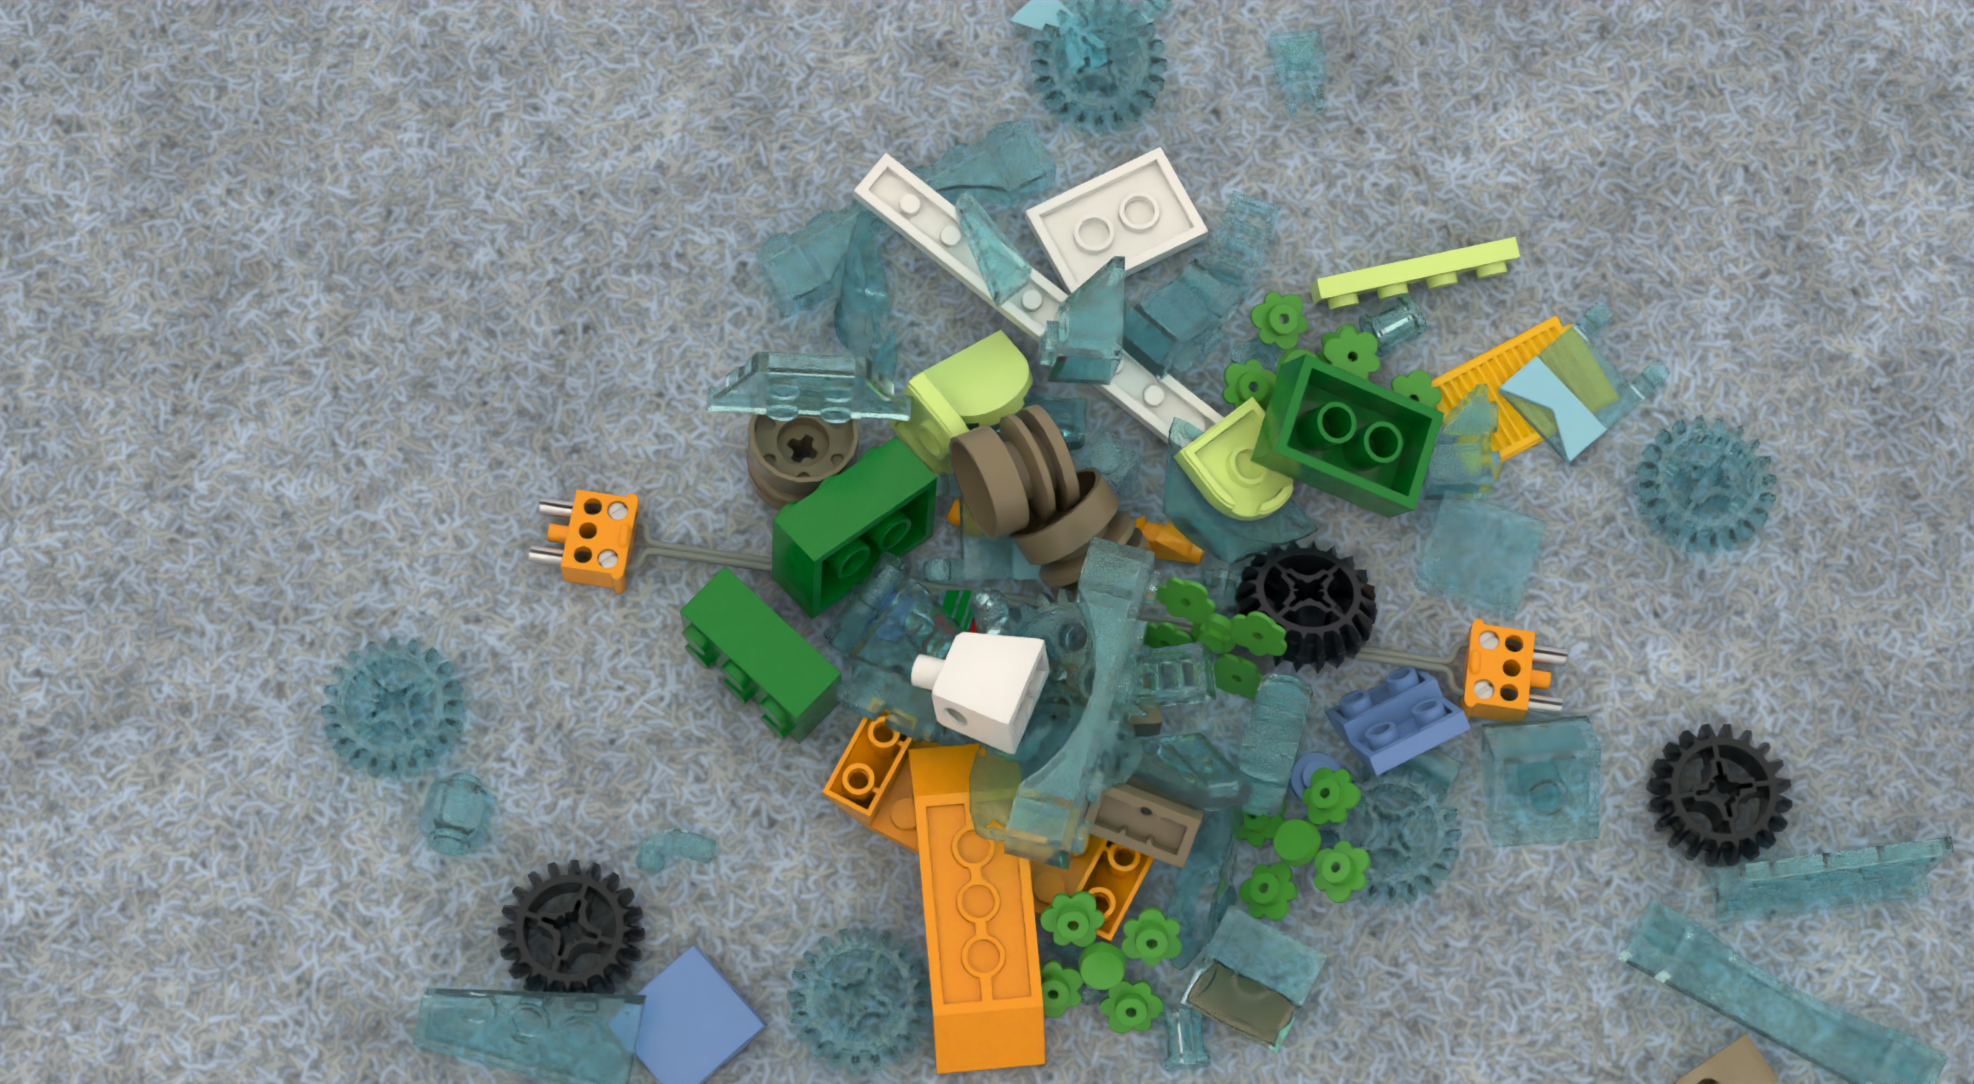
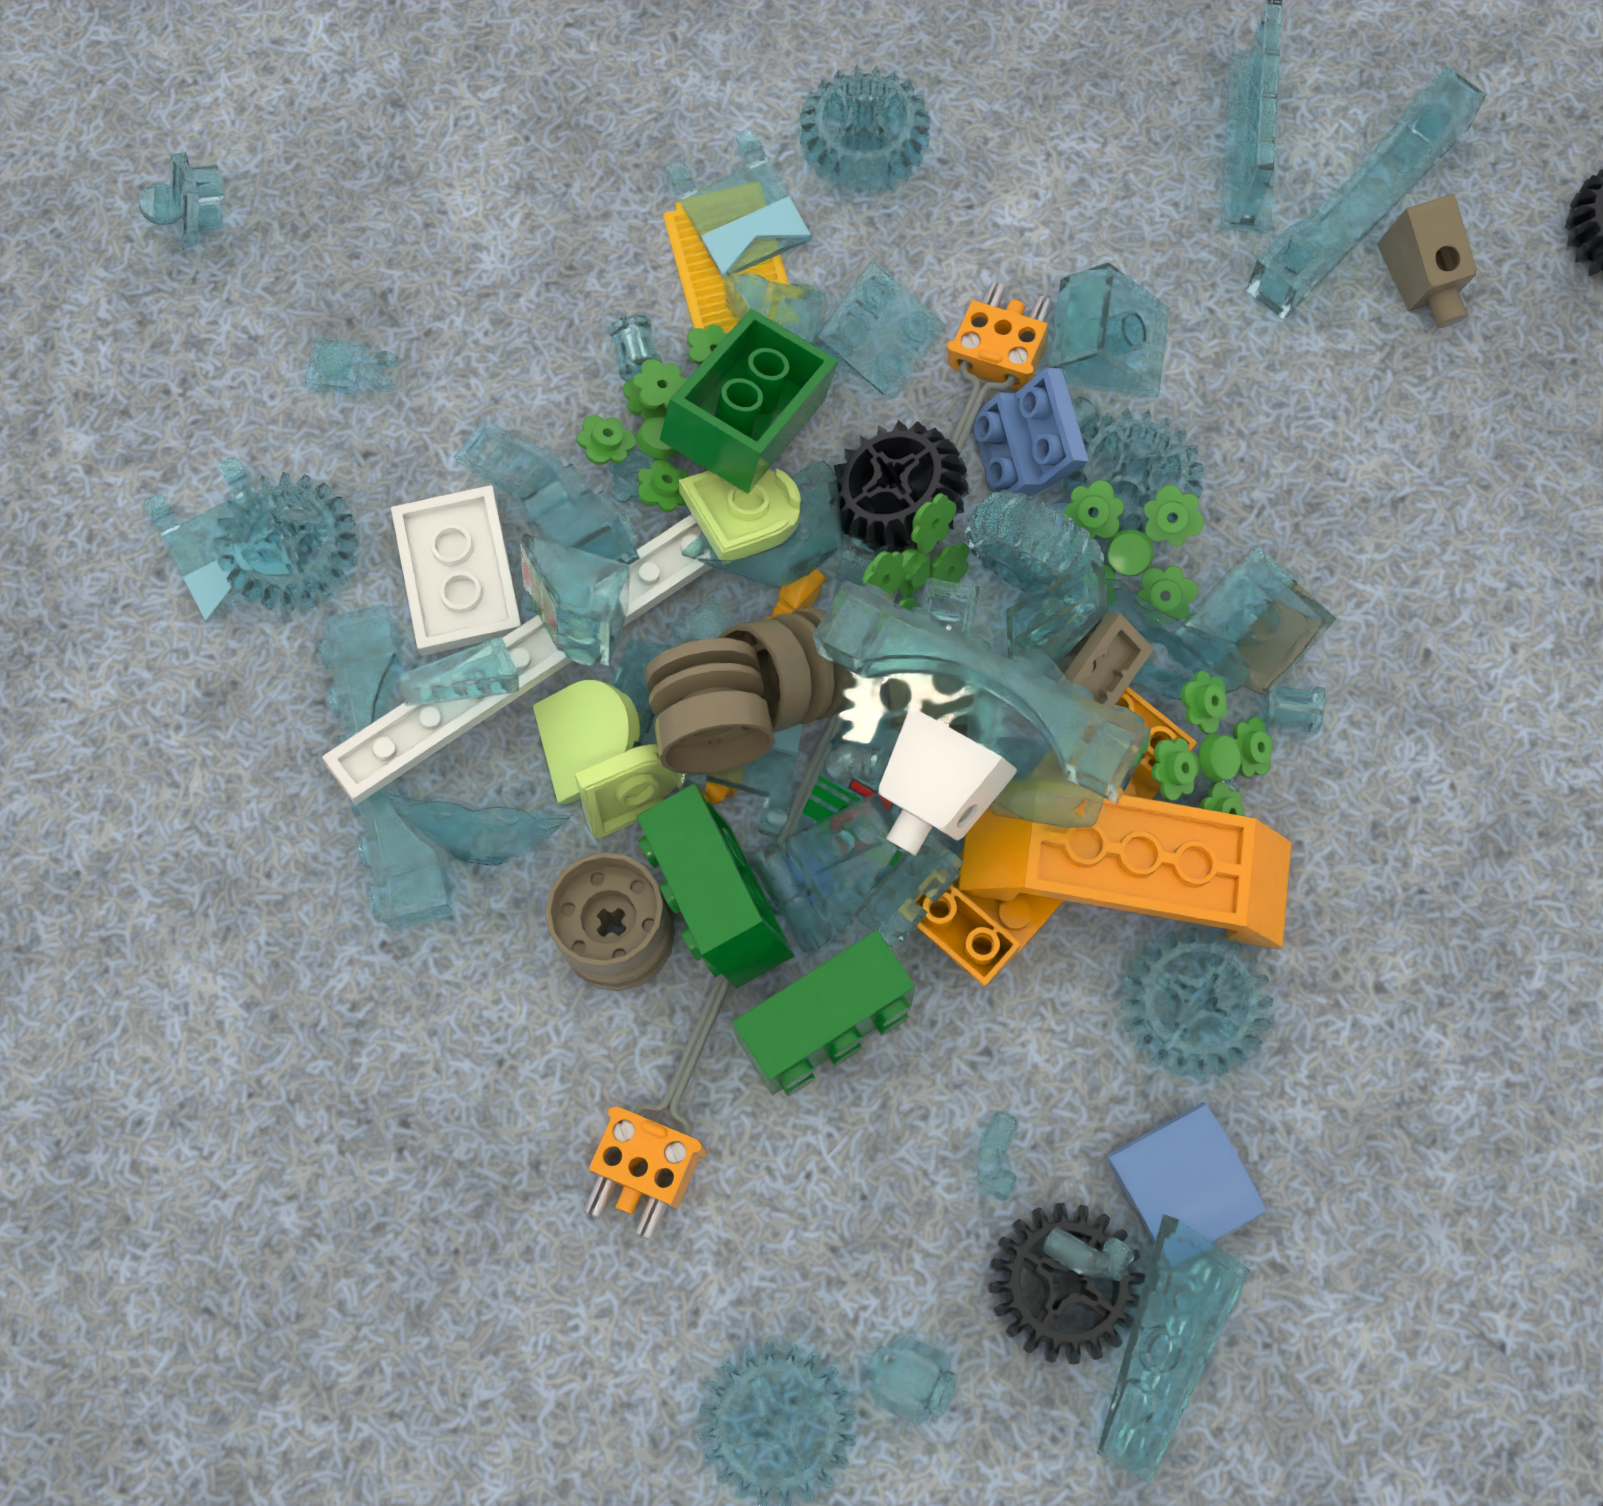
camera: 70 degrees left, 0 degrees up
(587, 935) = (1086, 1260): none -> clear light blue arm
(809, 386) = (561, 898): clear light blue wing -> none
(1436, 269) = (589, 335): yellowish green plate -> none
(1722, 816) = (1131, 207): black gear -> none

